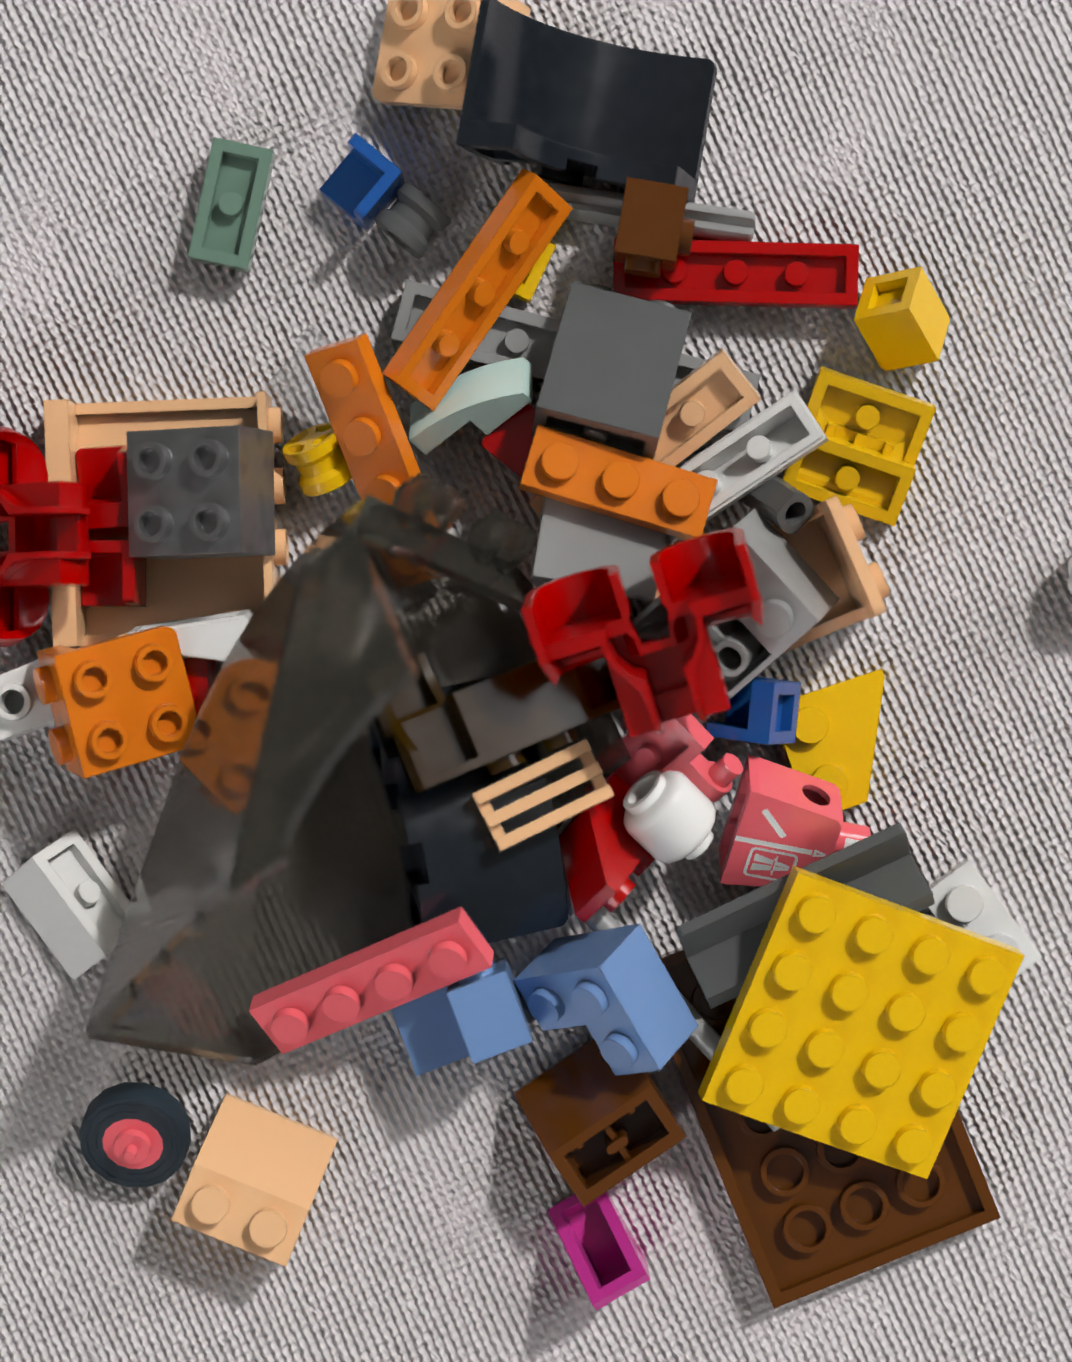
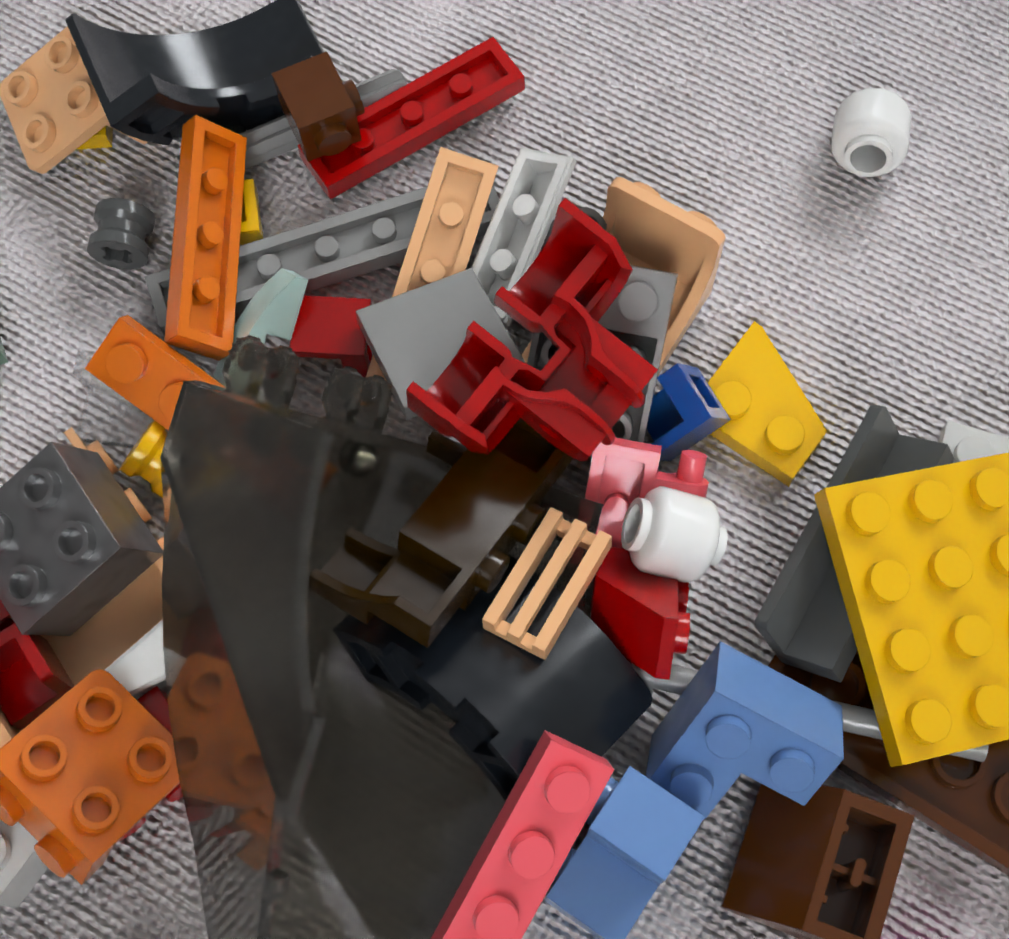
camera: 30 degrees left, 20 degrees down
(363, 183) = (61, 229): blue panel -> none
(612, 368) = (365, 229): dark grey panel -> none
(617, 483) = (421, 295): orange plate -> none
(781, 823) = (768, 489): coral torso -> none
(870, 445) = (606, 151): yellow slope -> none
(902, 319) = (566, 68): yellow panel -> none

